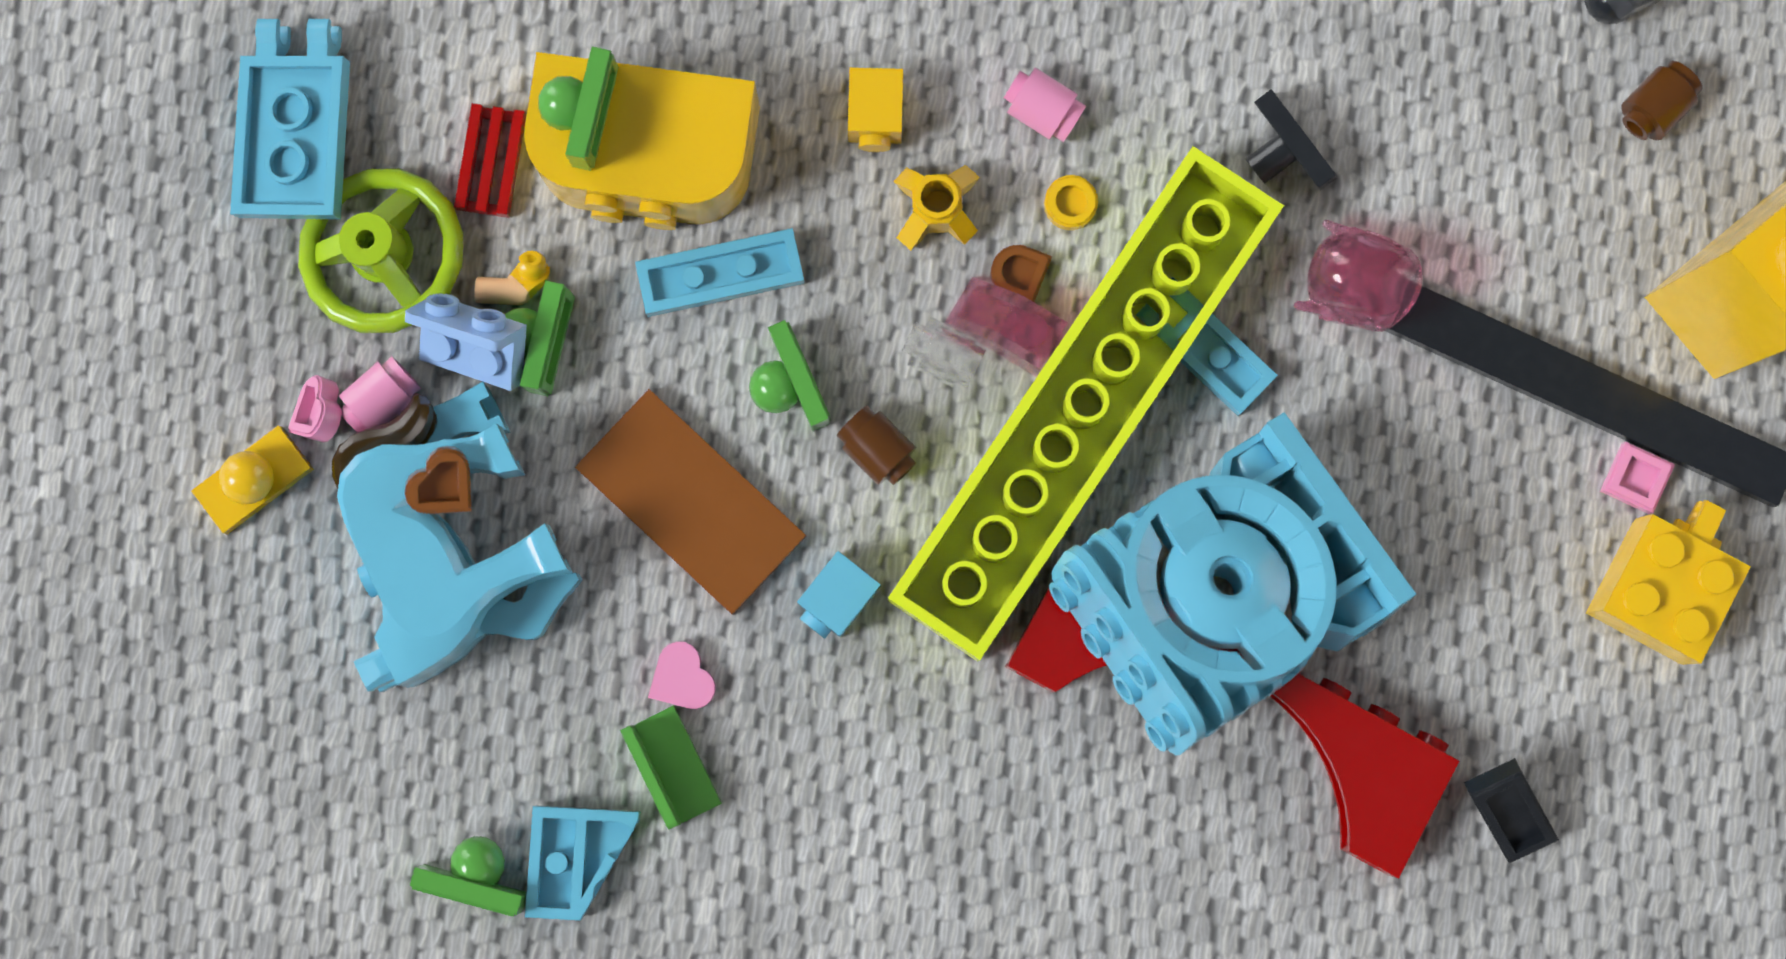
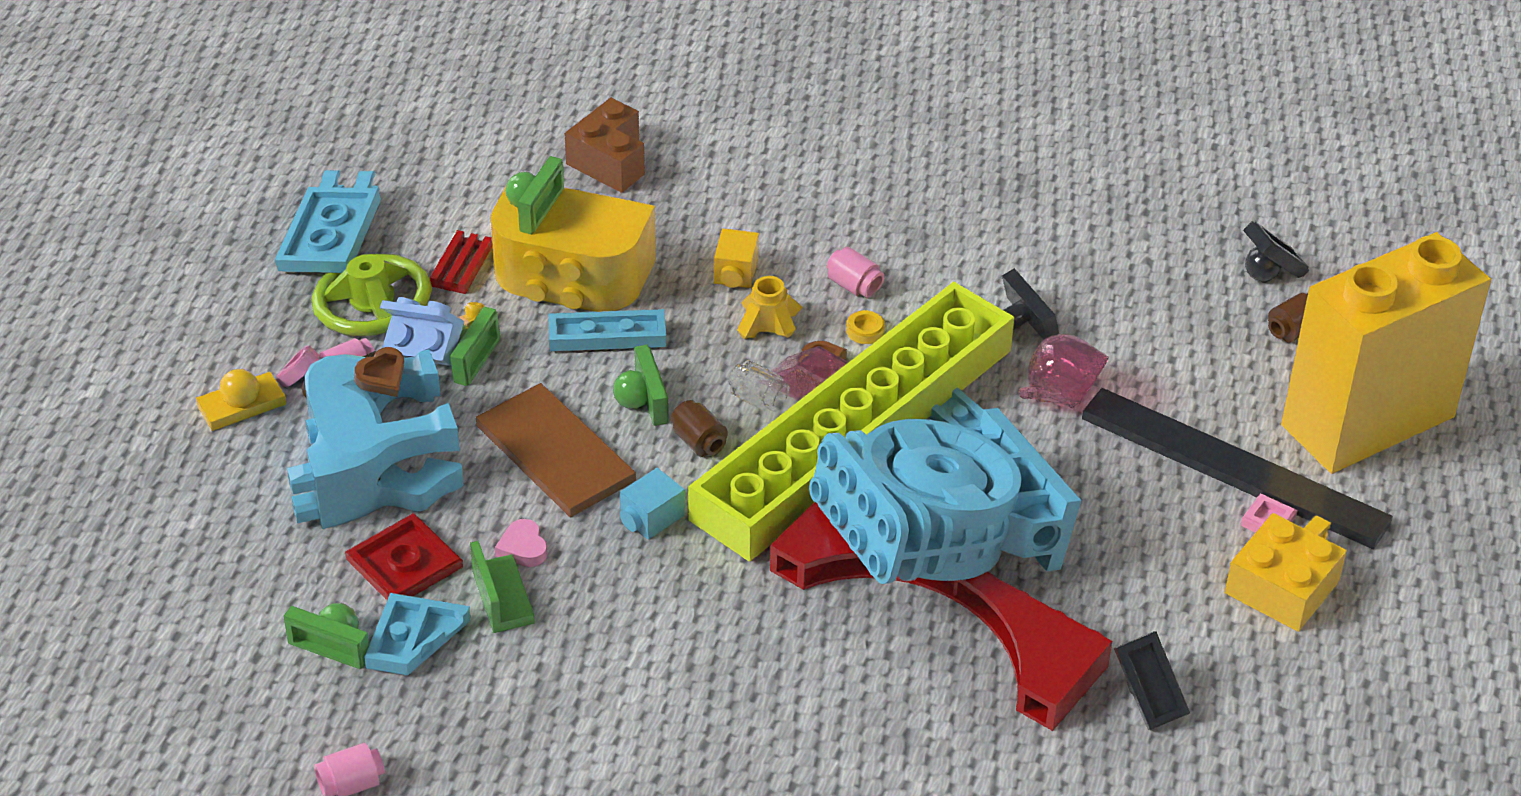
camera: 10 degrees right, 40 degrees down
(534, 728) = (404, 558): none -> red tile

